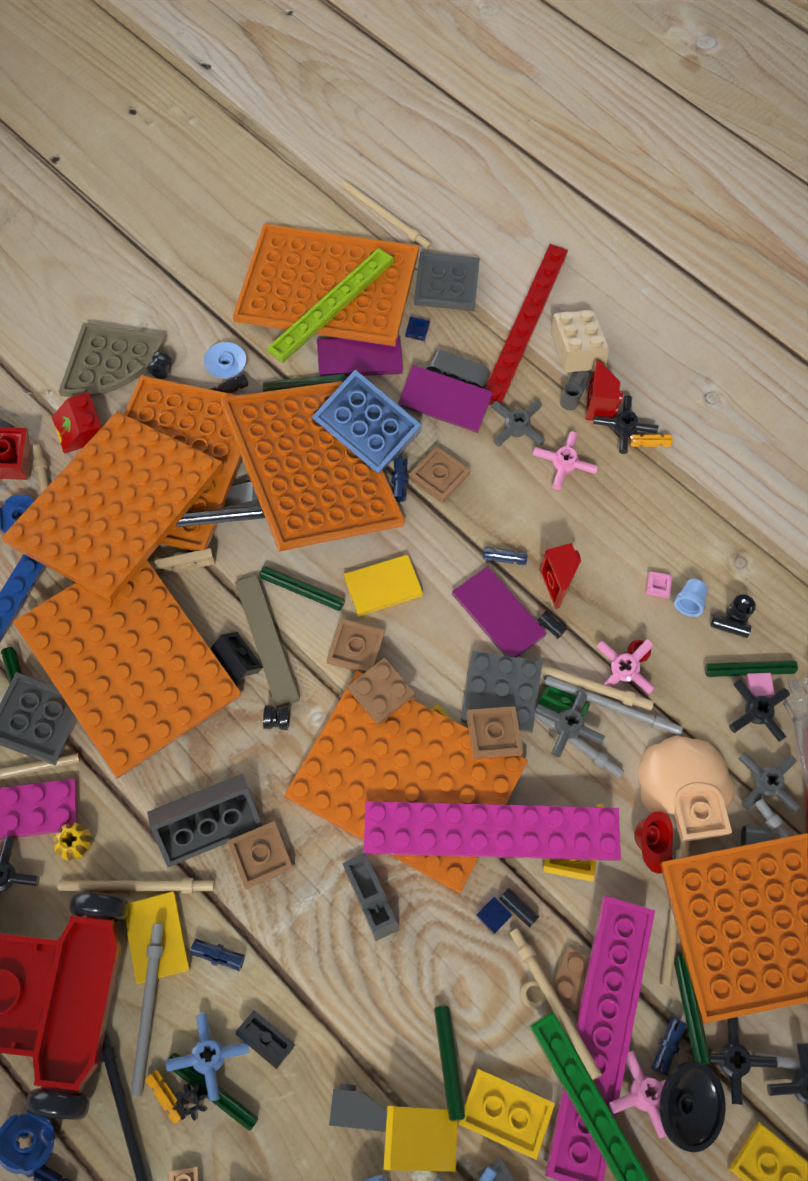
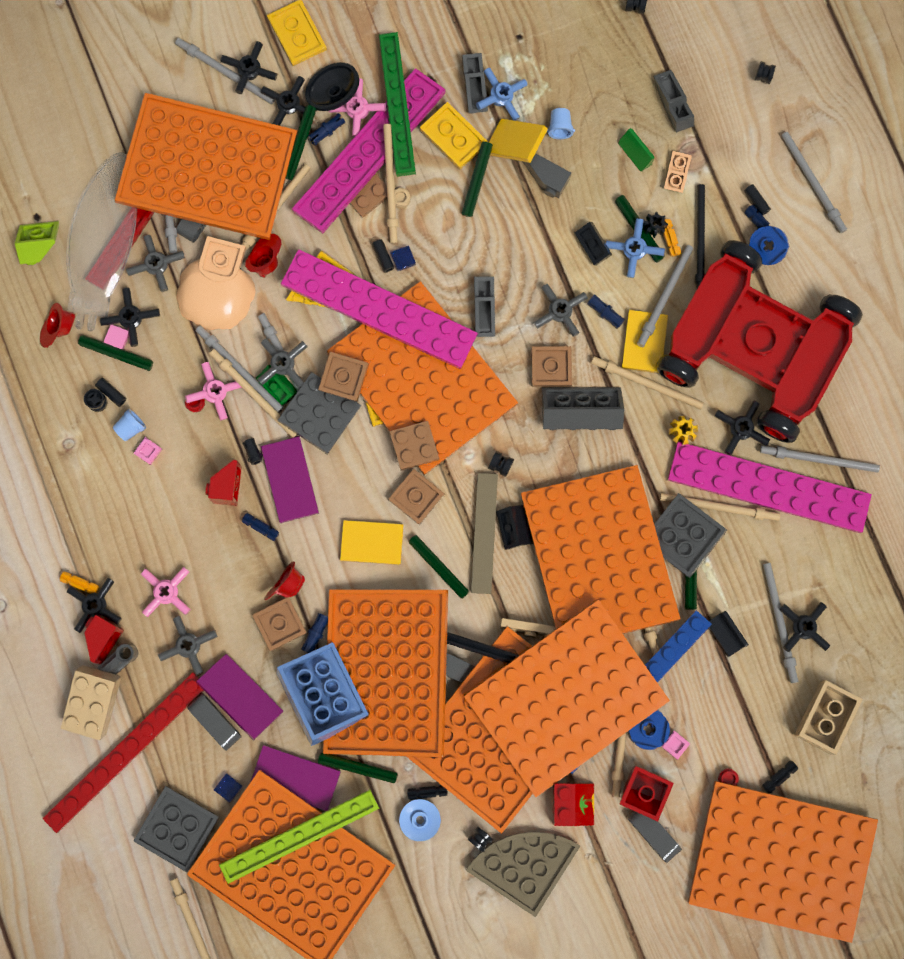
camera: 155 degrees left, 15 degrees up
(265, 933) = (560, 317): none -> dark grey bar
(450, 508) = (288, 583): none -> red piece

